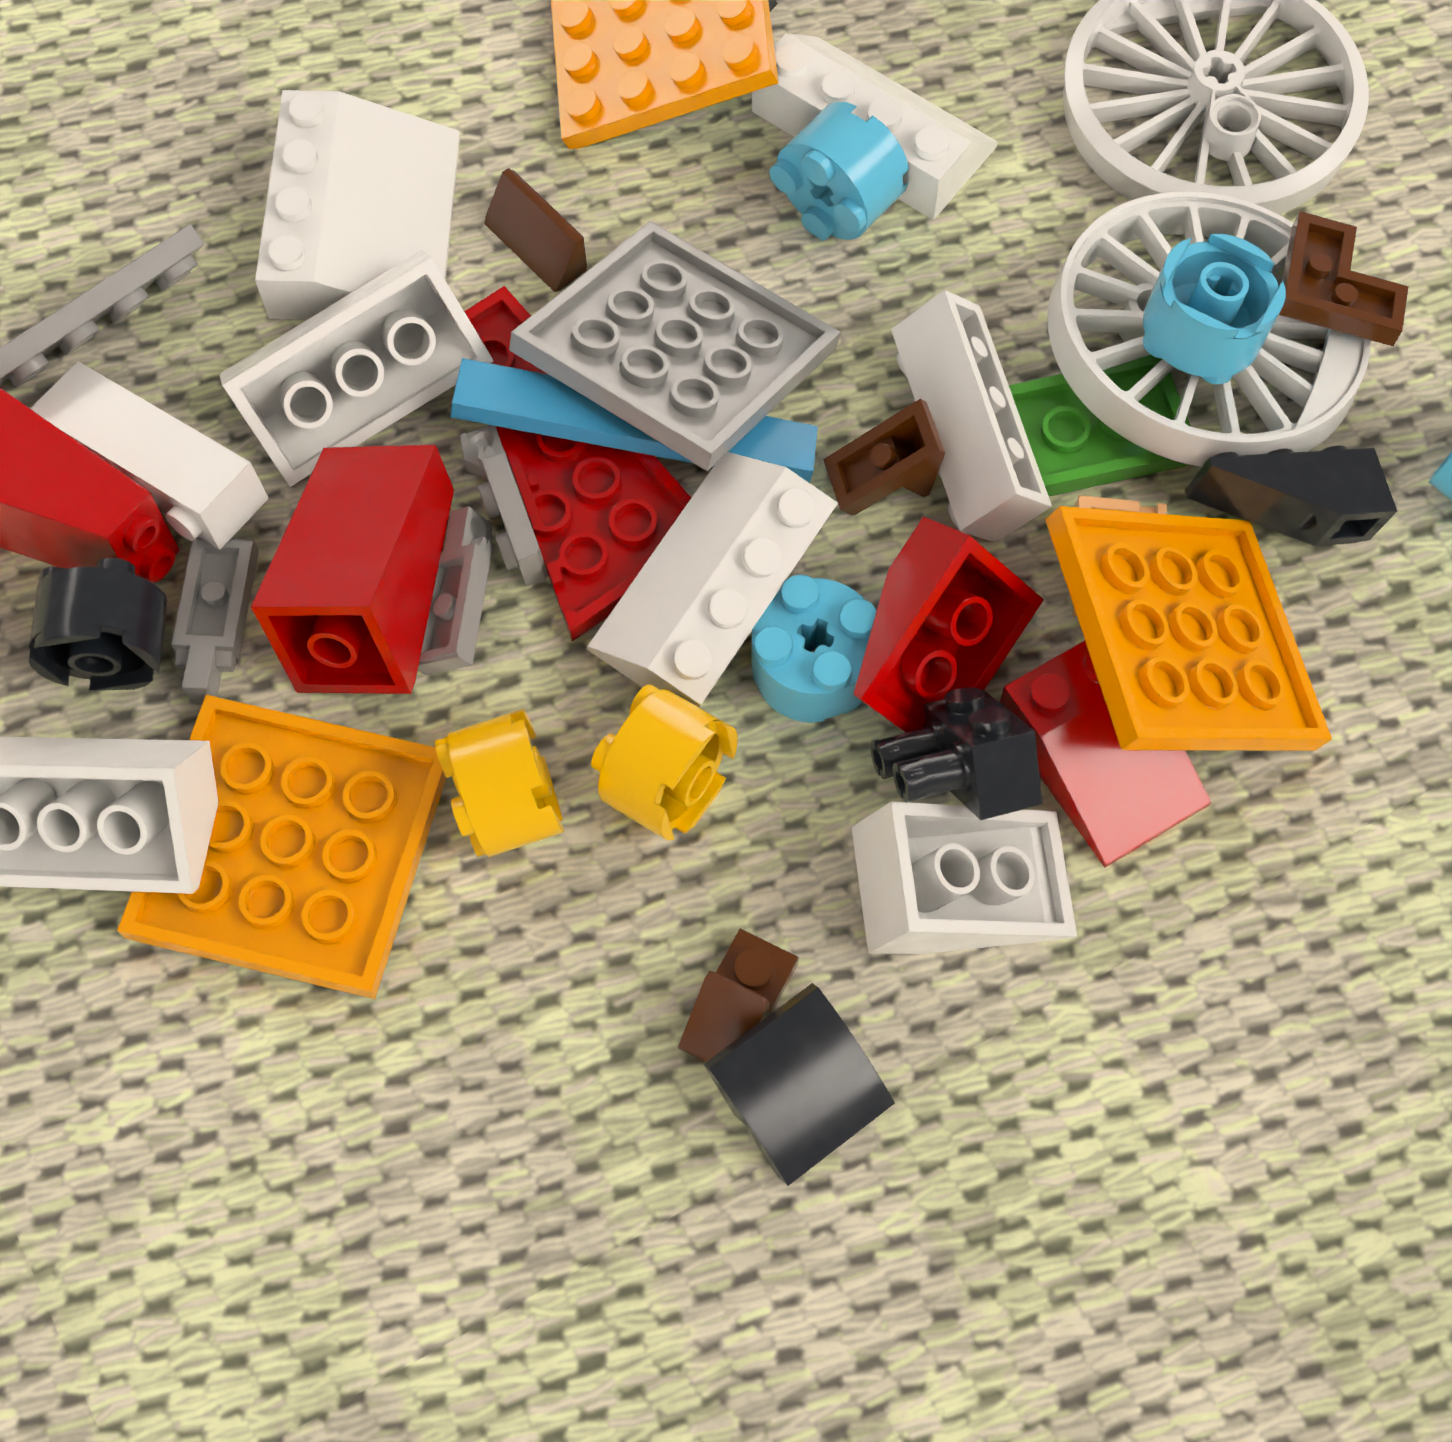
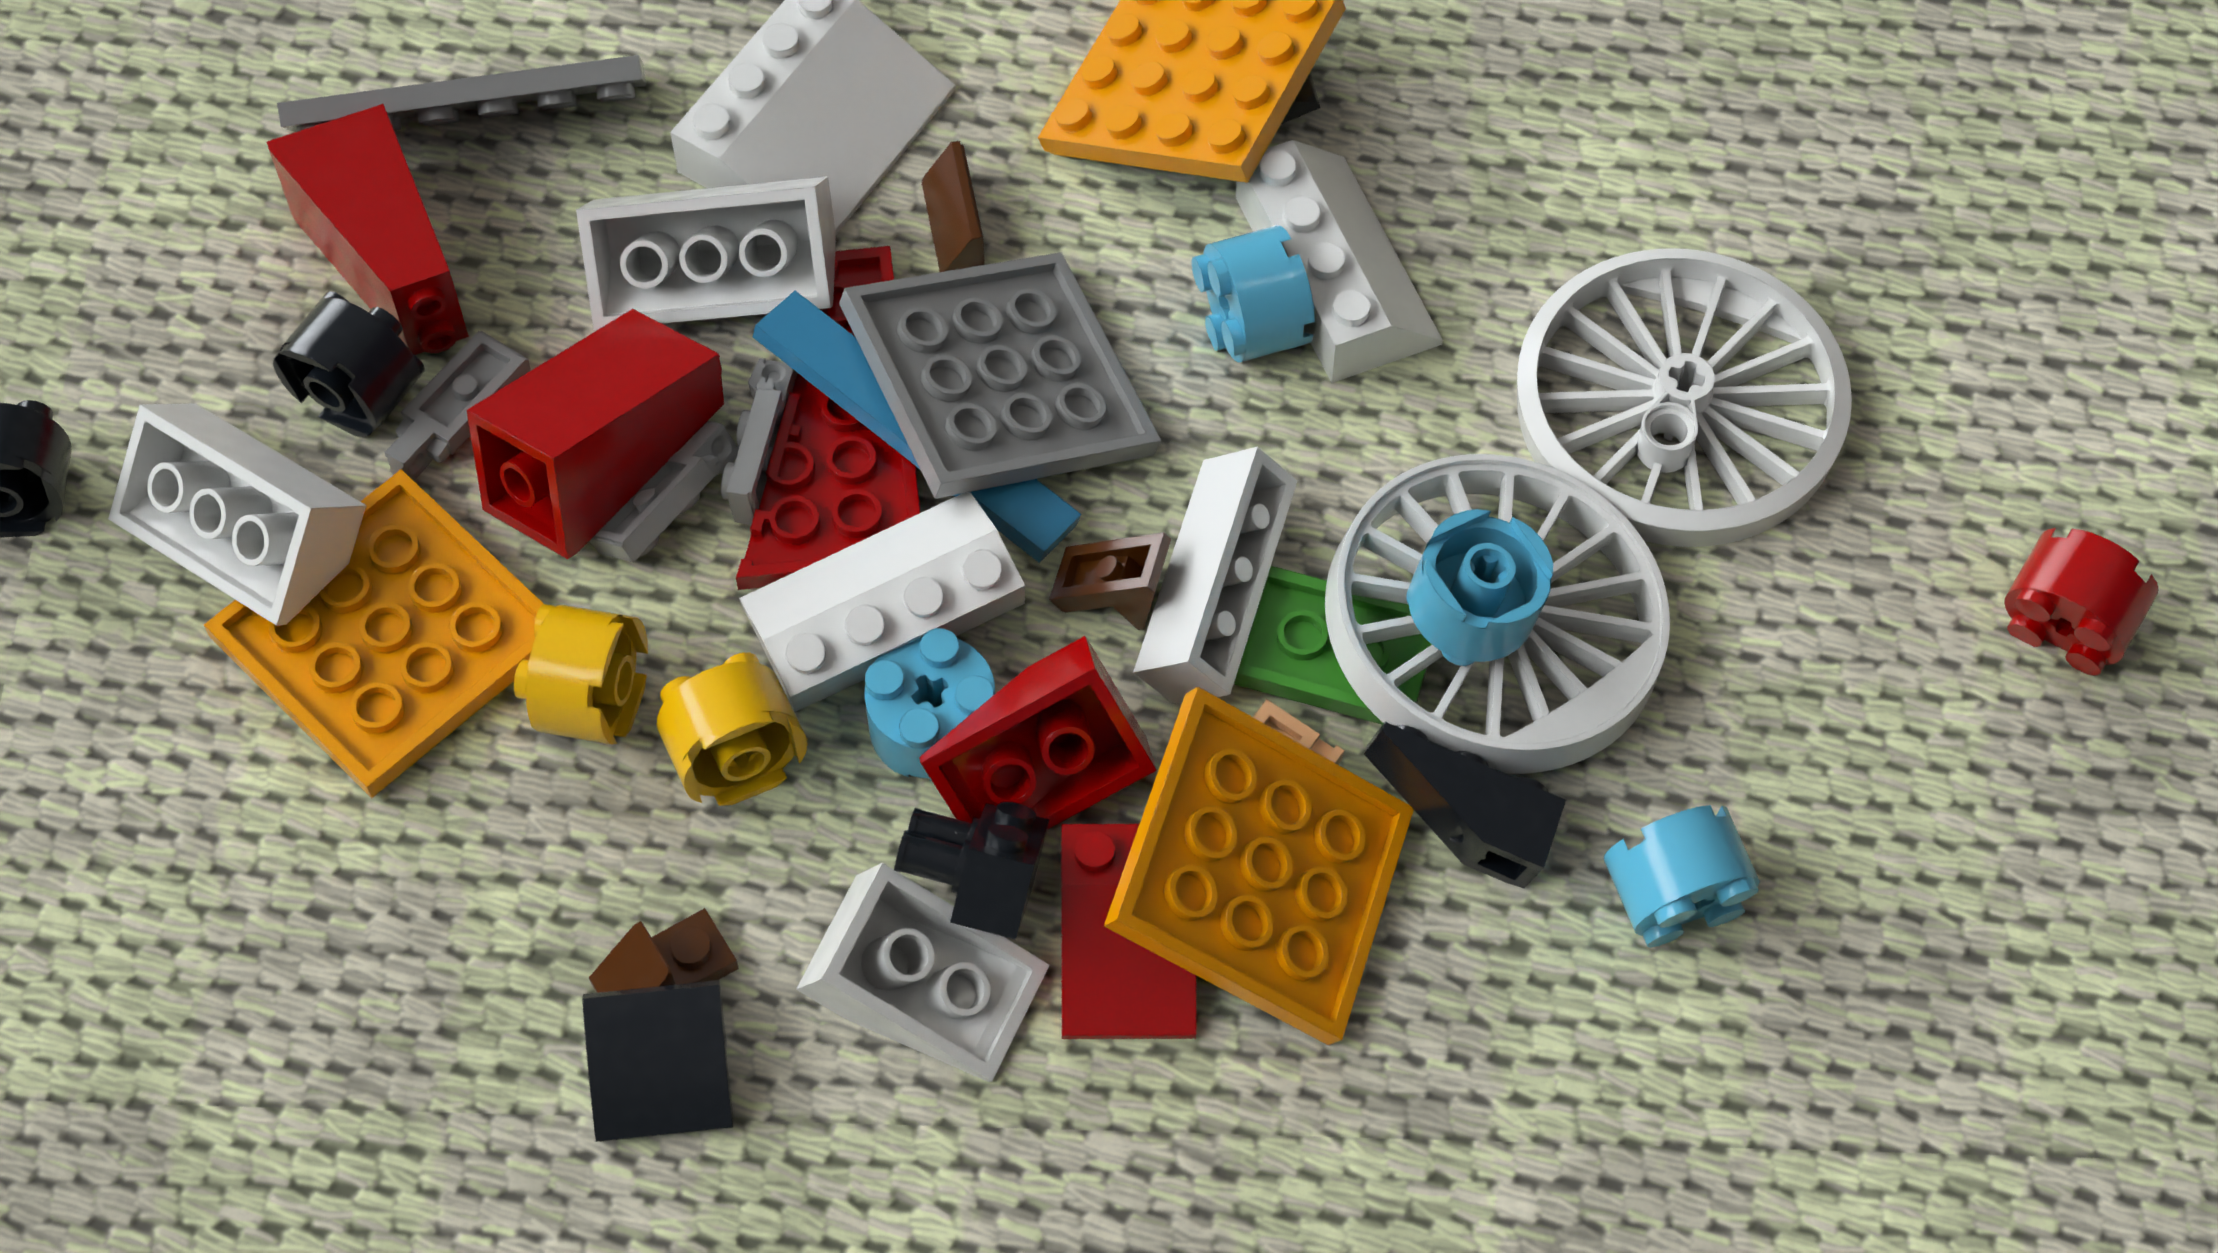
camera: 30 degrees right, 5 degrees down
(192, 478) = (486, 241): white brick -> none
(1330, 294) = (1622, 635): reddish brown plate -> none

